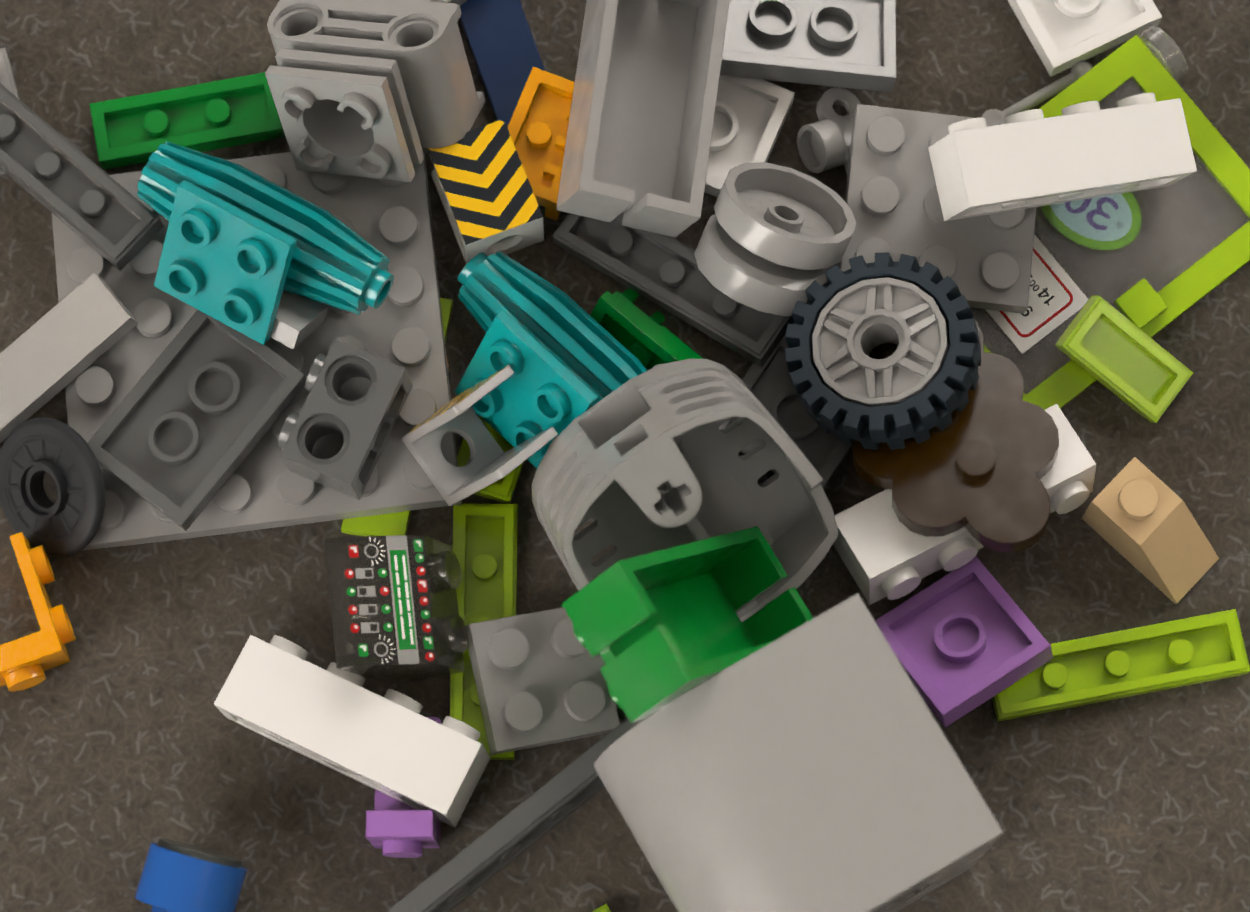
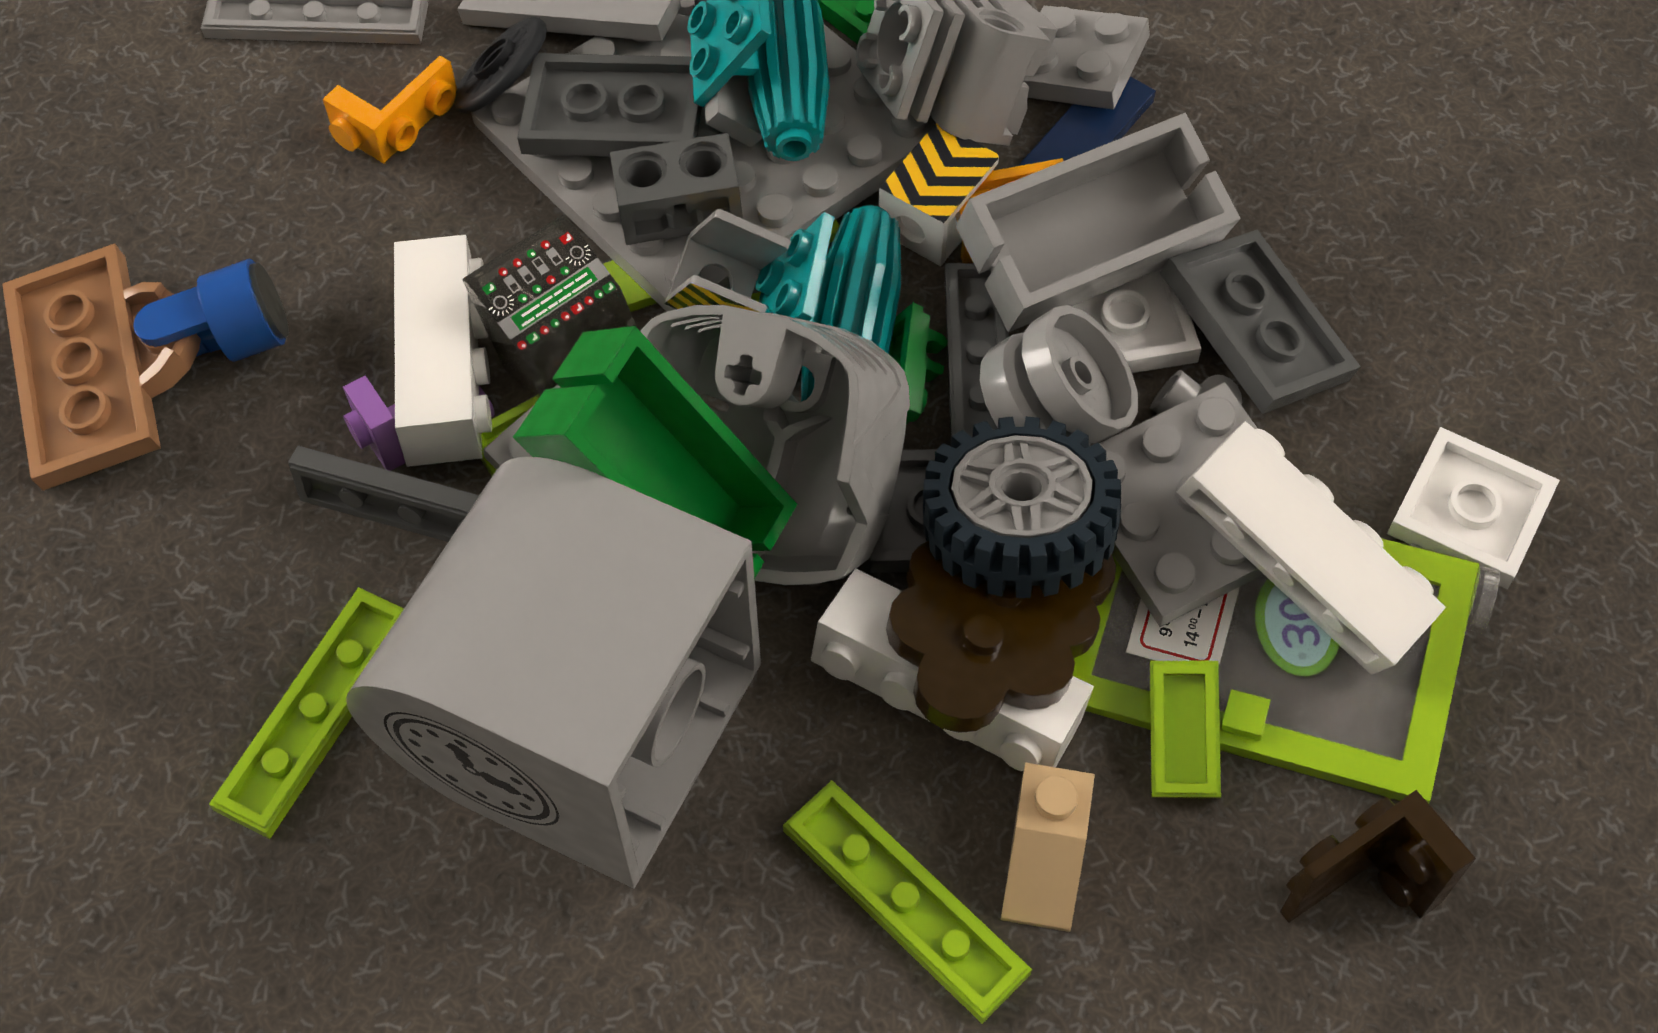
camera: 60 degrees right, 15 degrees down
(963, 641) = (825, 745): medium lavender plate -> none

